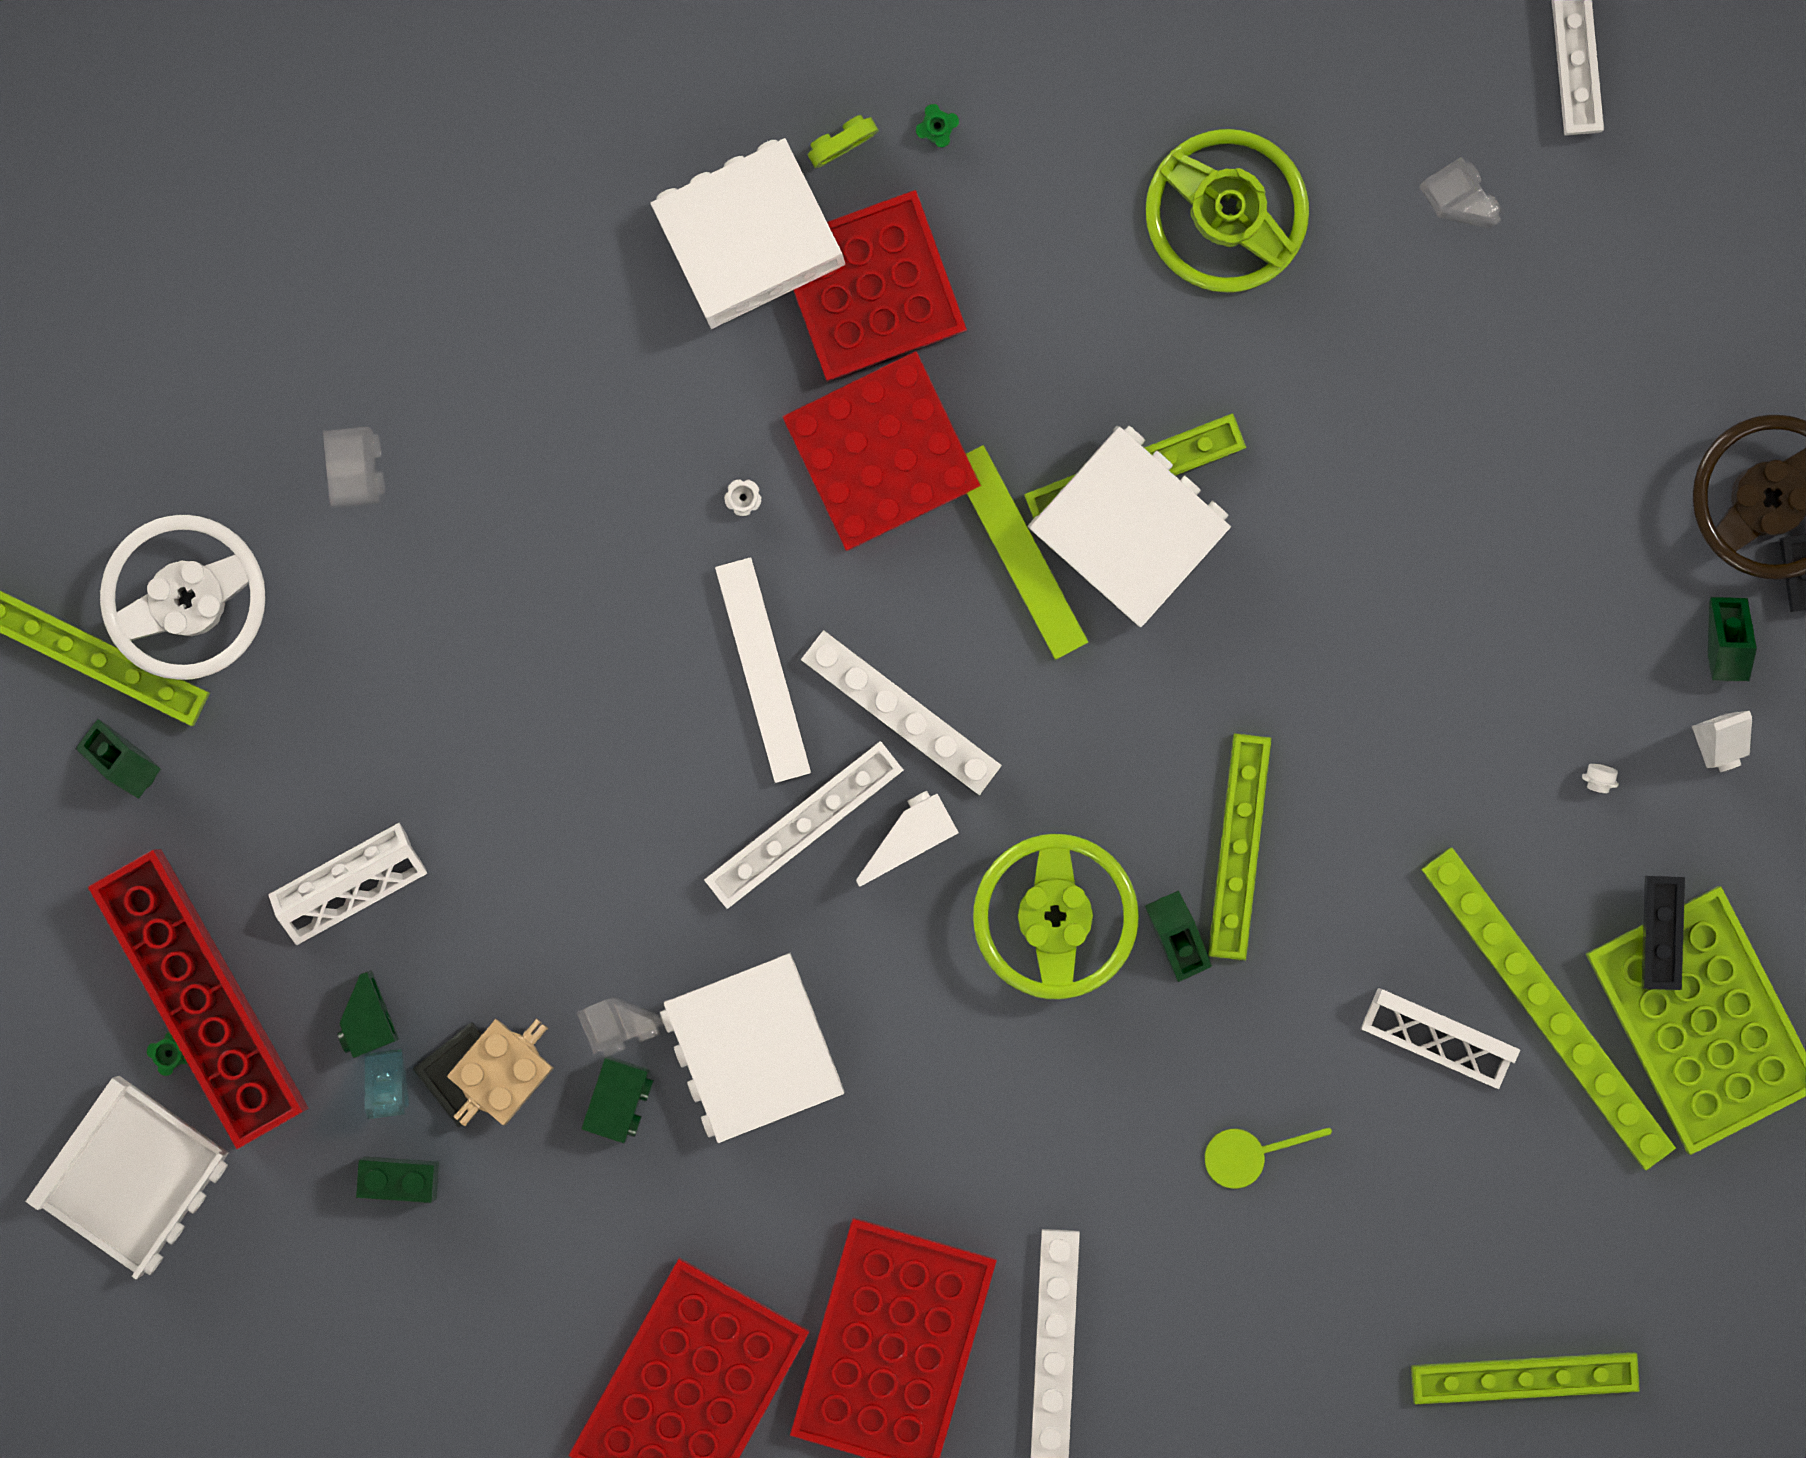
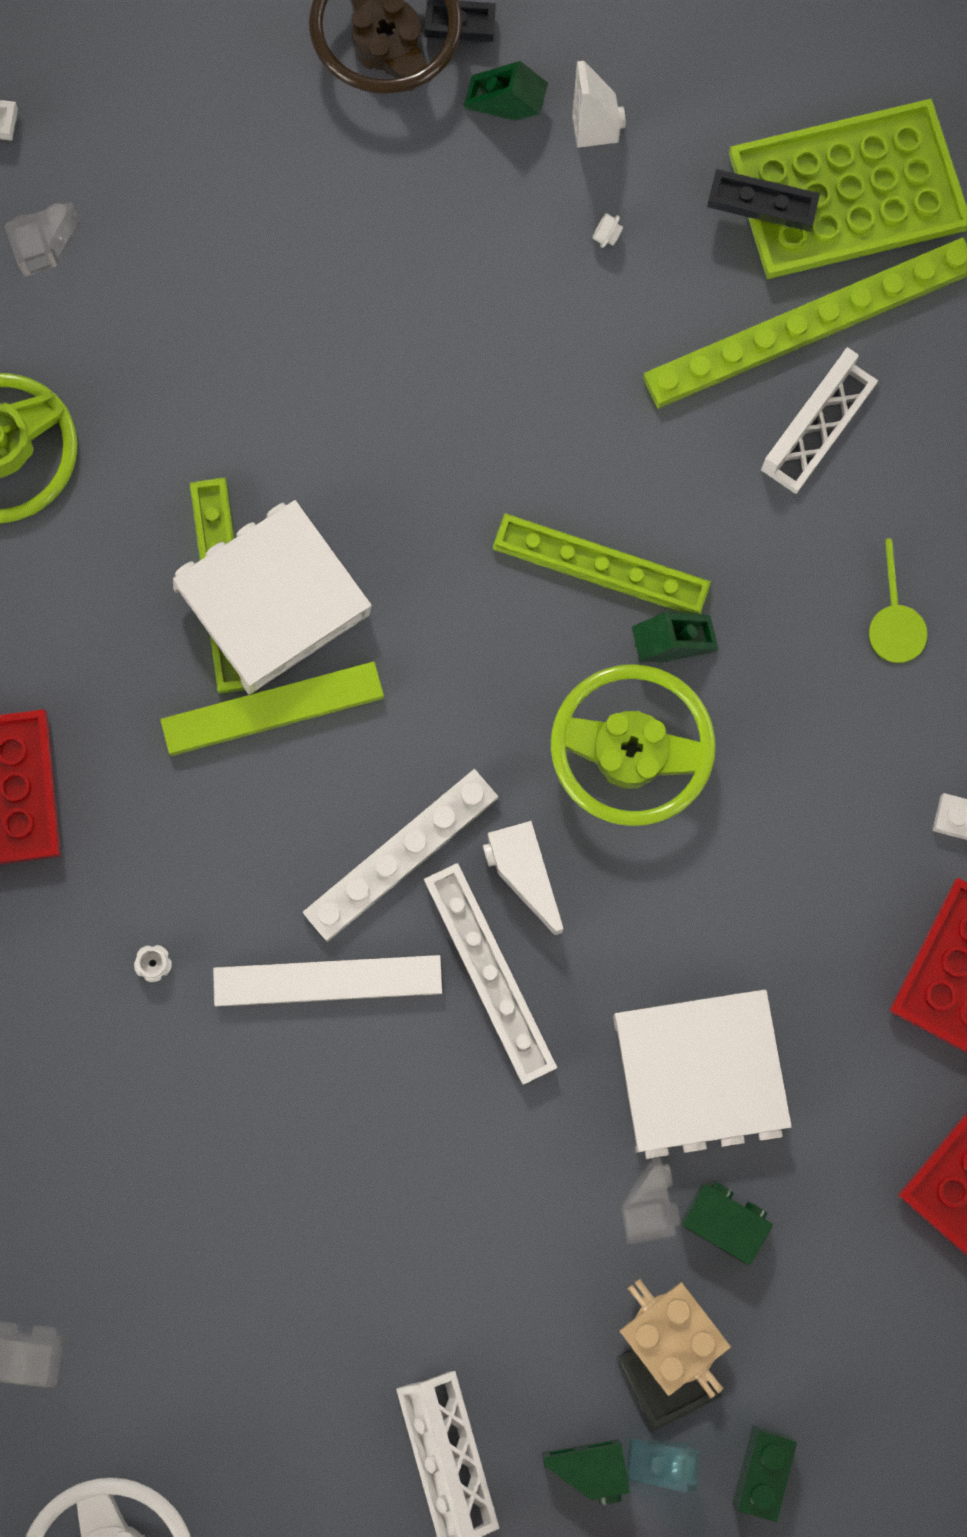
camera: 80 degrees left, 10 degrees down
(881, 451) = (141, 817): red plate -> none

